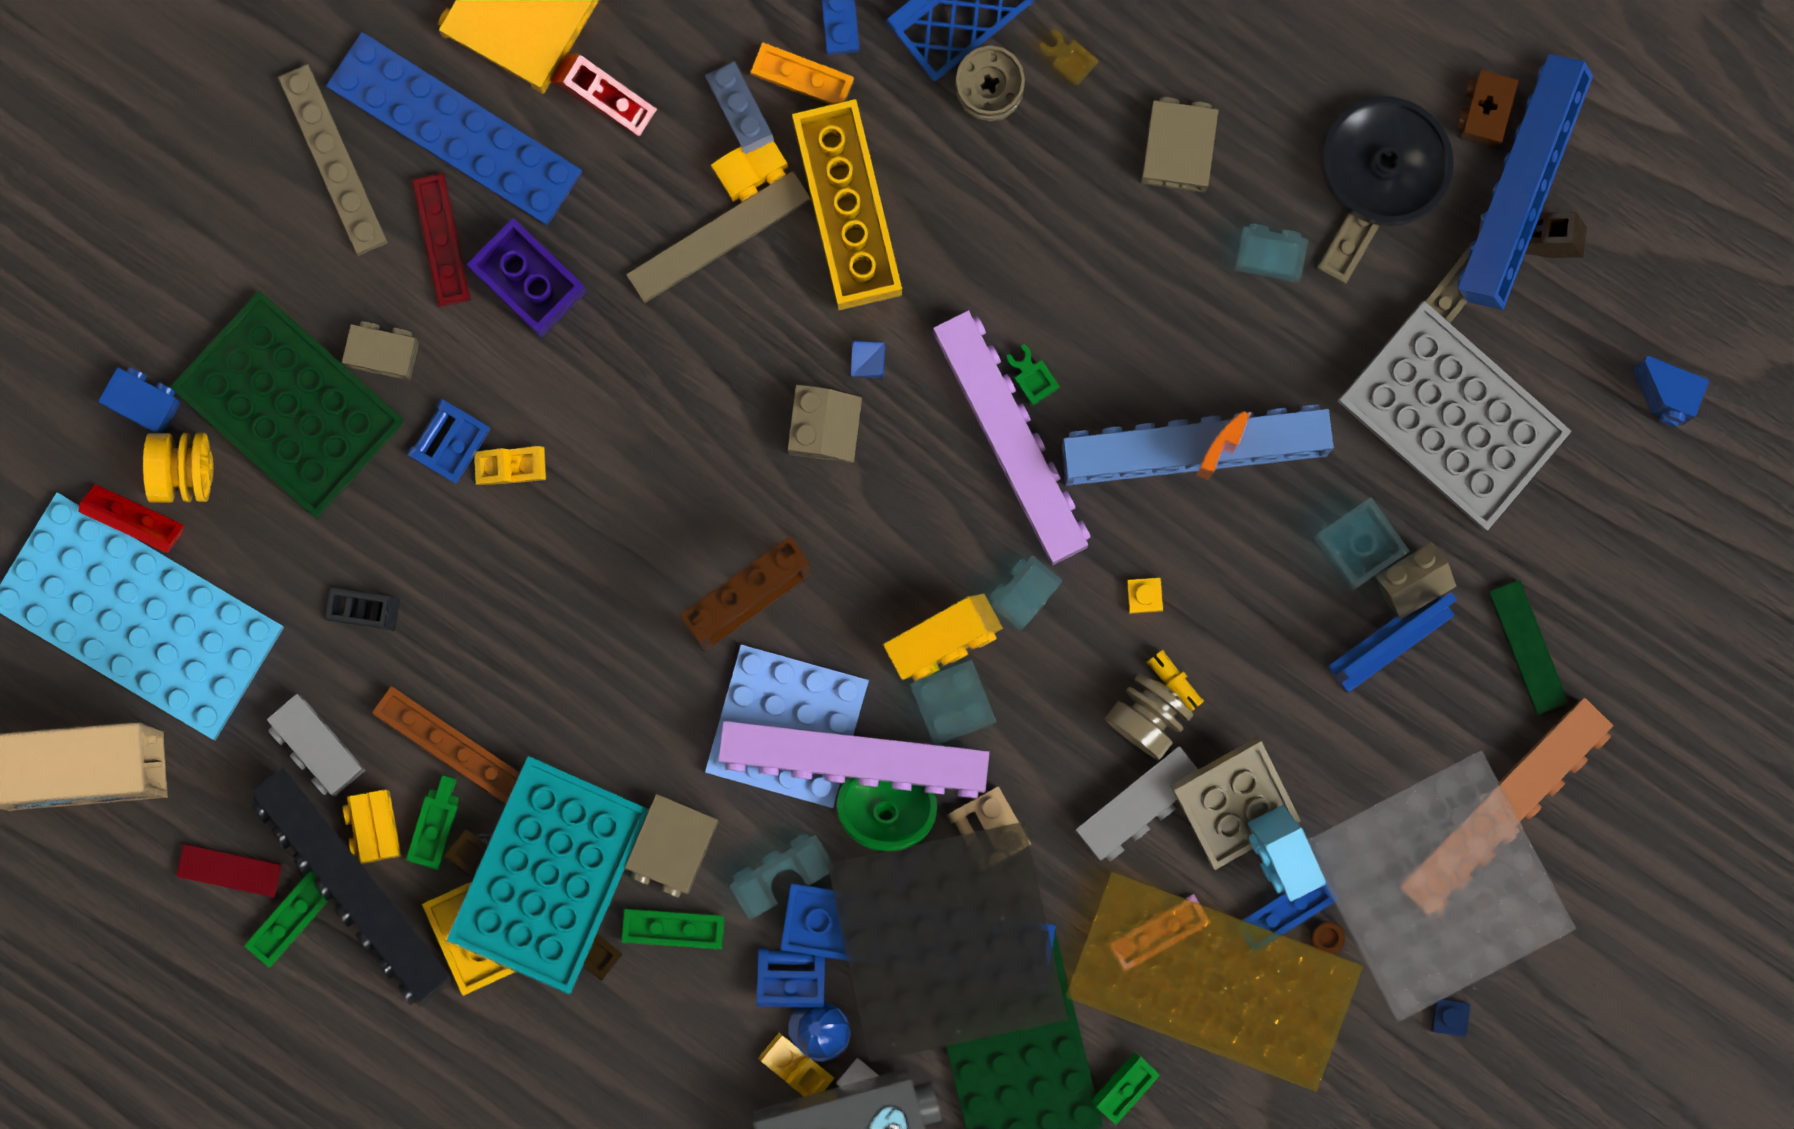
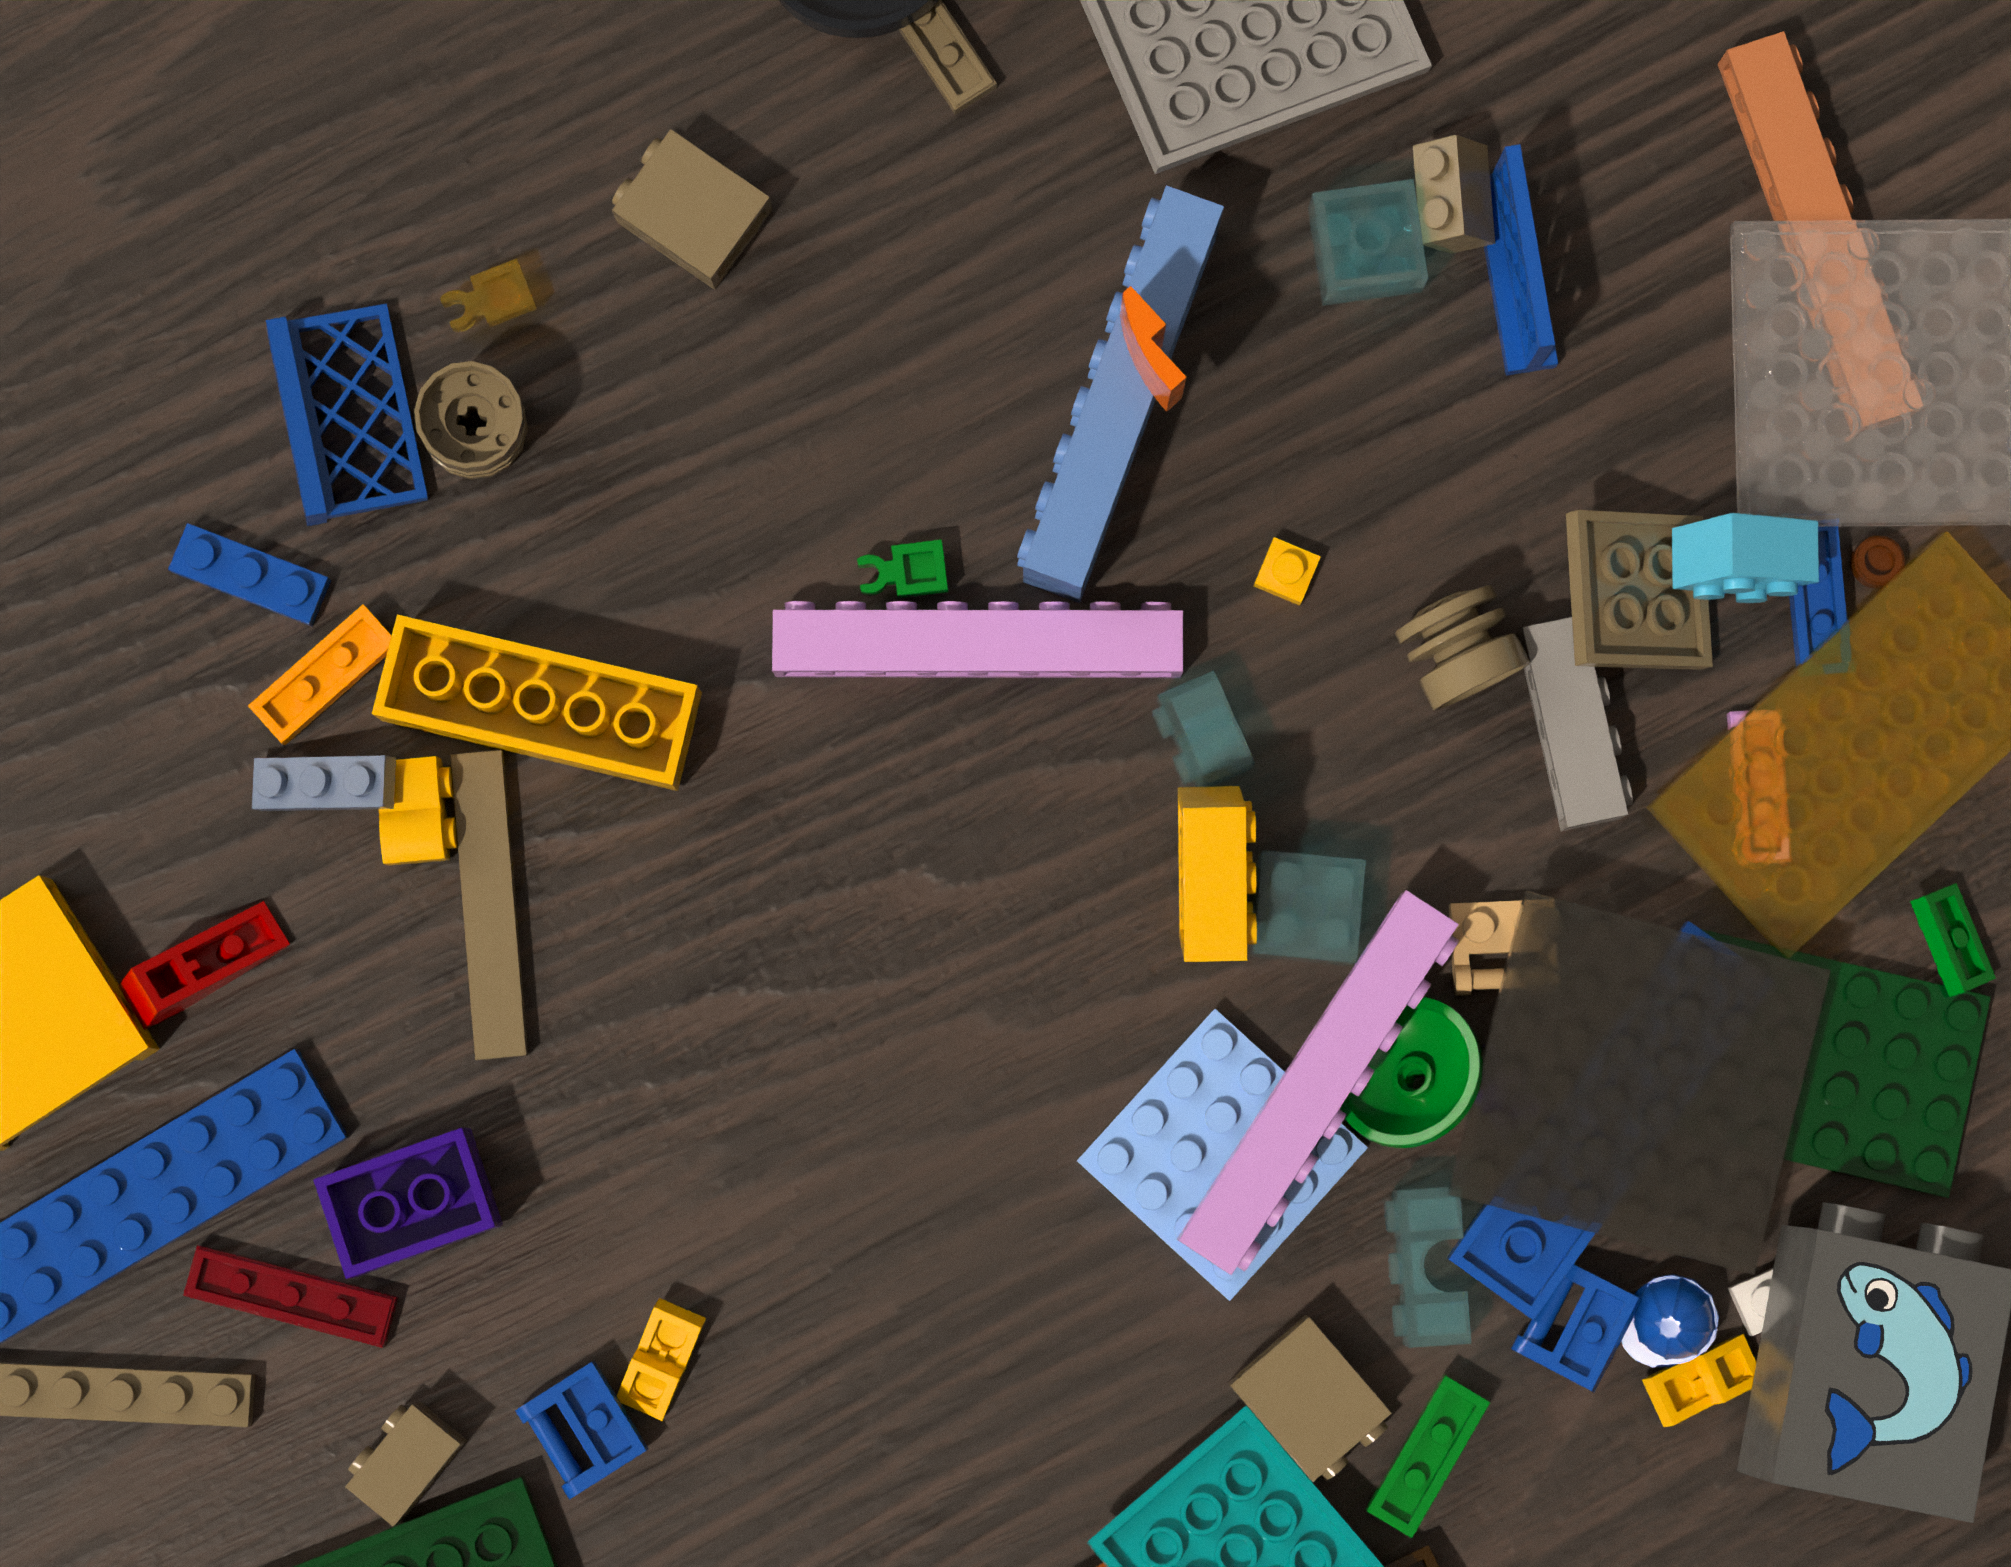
camera: 60 degrees left, 0 degrees up
(747, 594) = (1018, 1115): reddish brown window -> none
(824, 424) = (827, 889): dark tan slope -> none
(868, 359) = (768, 784): blue slope -> none
(1175, 680) = (1424, 588): yellow pin -> none
(1271, 253) = (904, 161): clear light blue brick -> none
(1528, 647) = (1615, 94): dark green tile -> none

